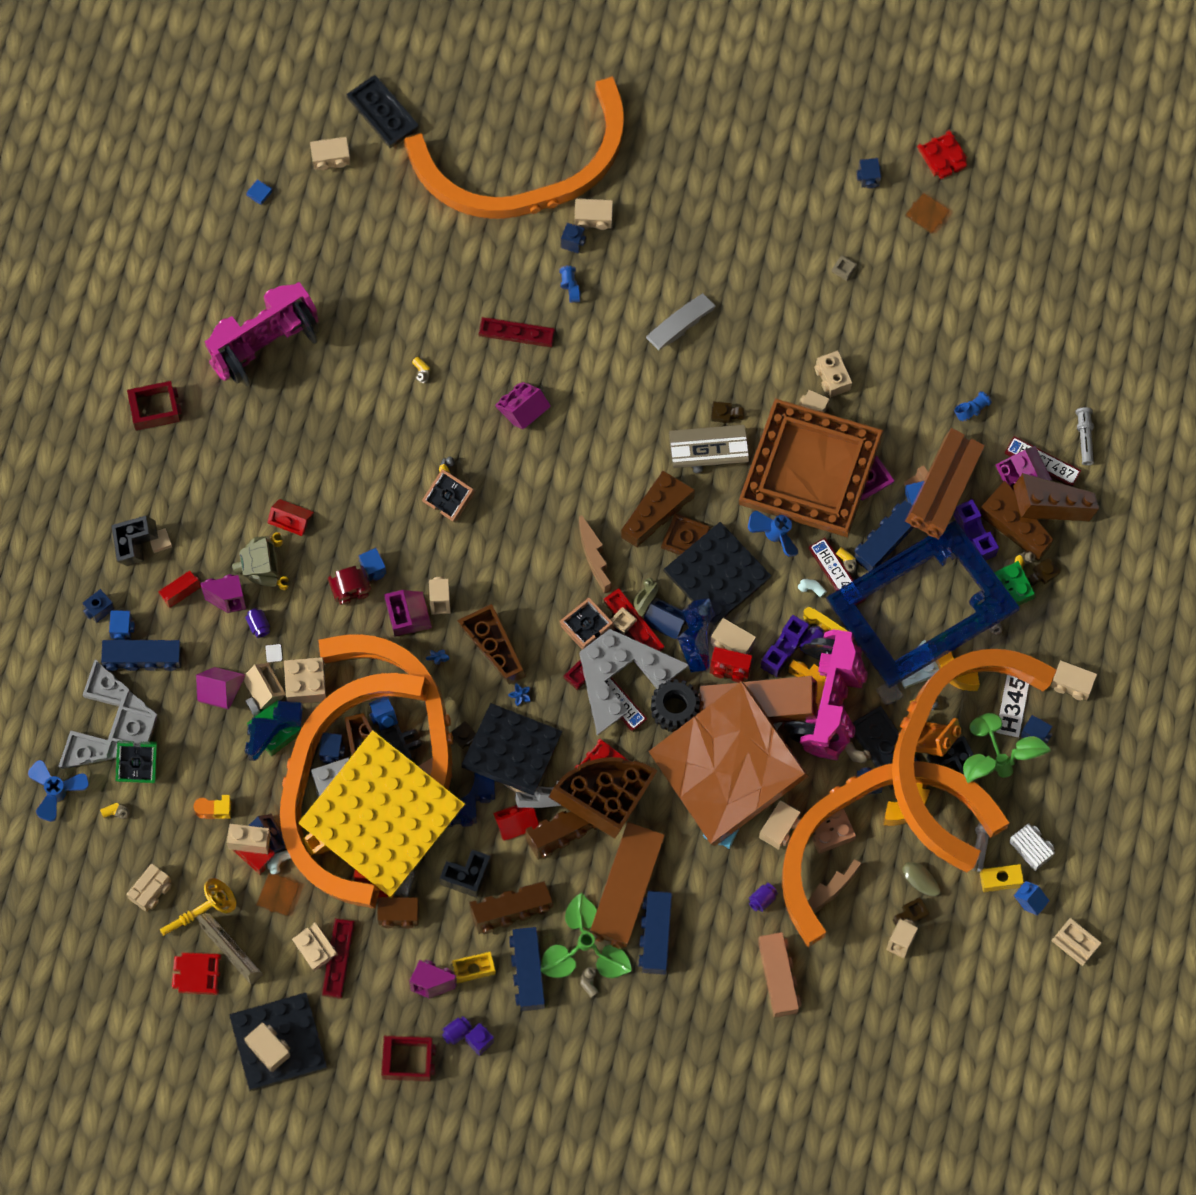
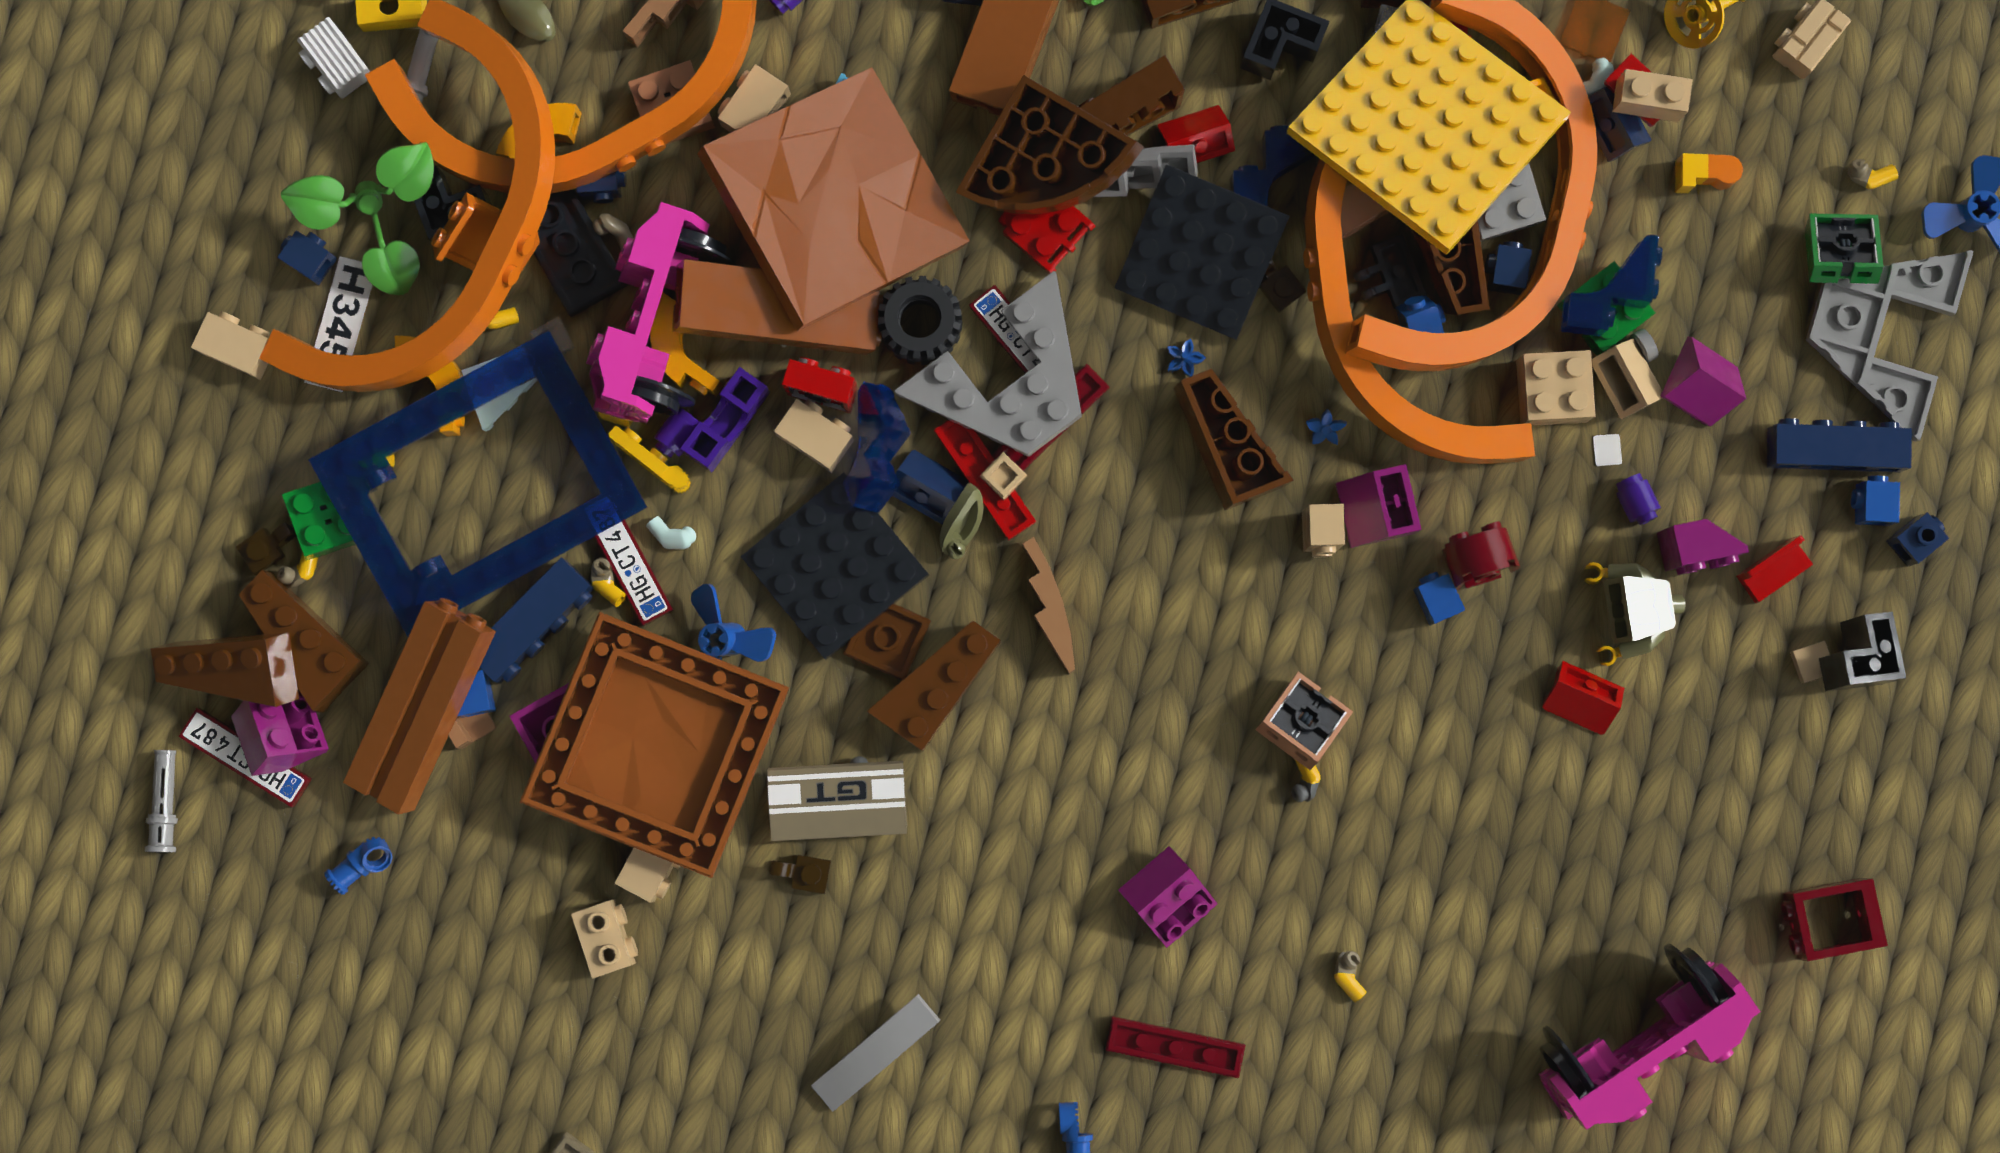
camera: 175 degrees left, 15 degrees up
(586, 623) = (1066, 471): piece -> none
(969, 520) = (380, 629): dark purple arch -> none

